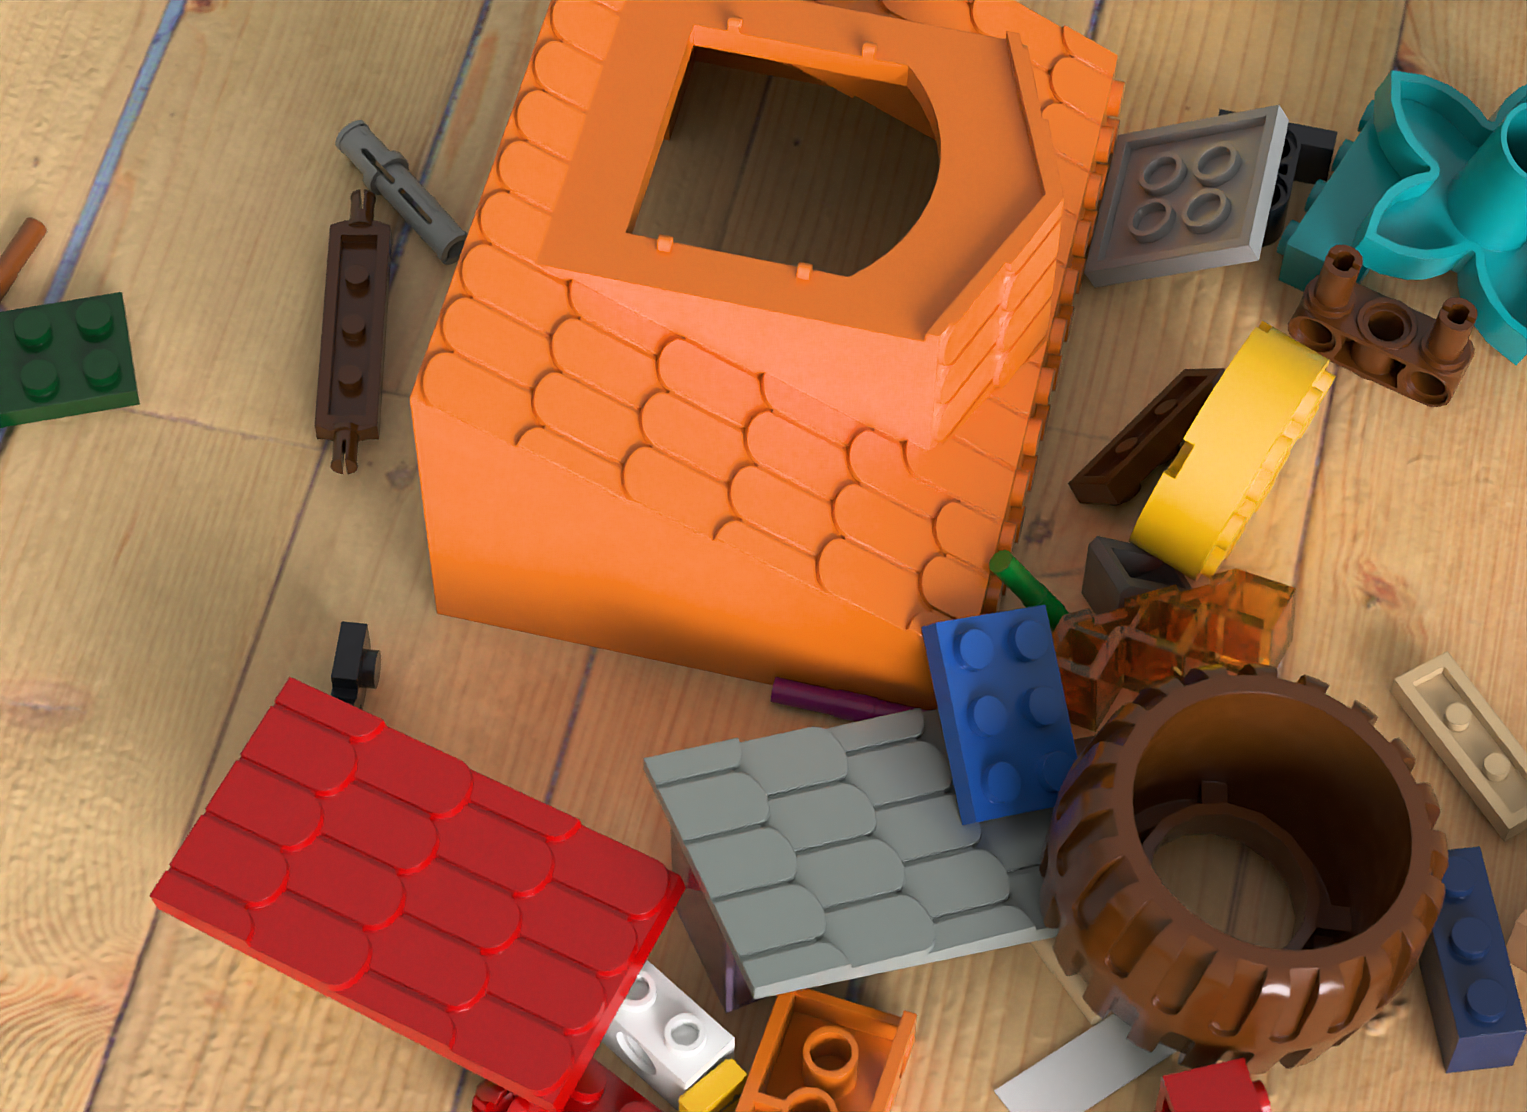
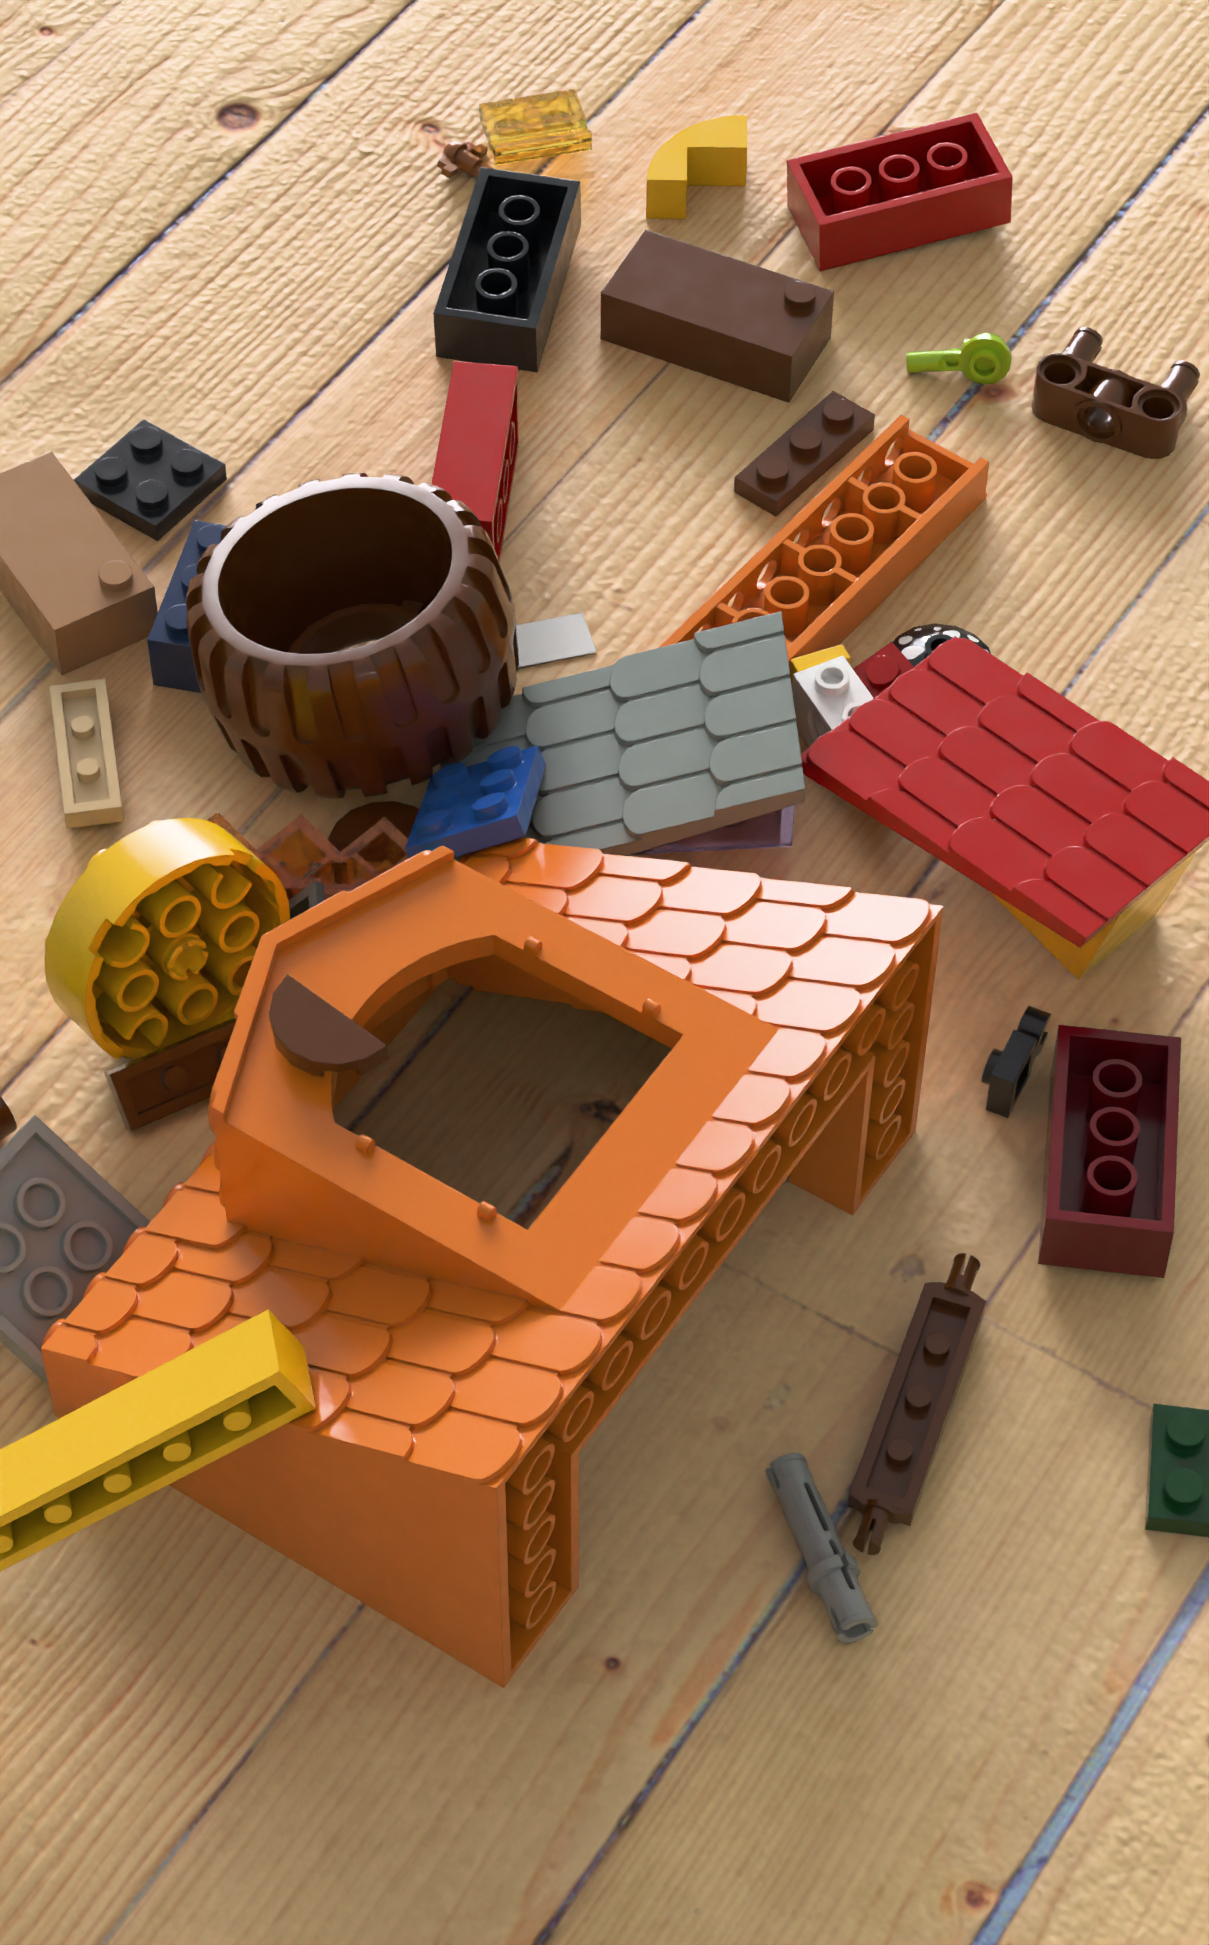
camera: 160 degrees left, 5 degrees down
(225, 596) = (1111, 1151): none -> dark red brick
(954, 103) = (318, 1035): none -> reddish brown tile

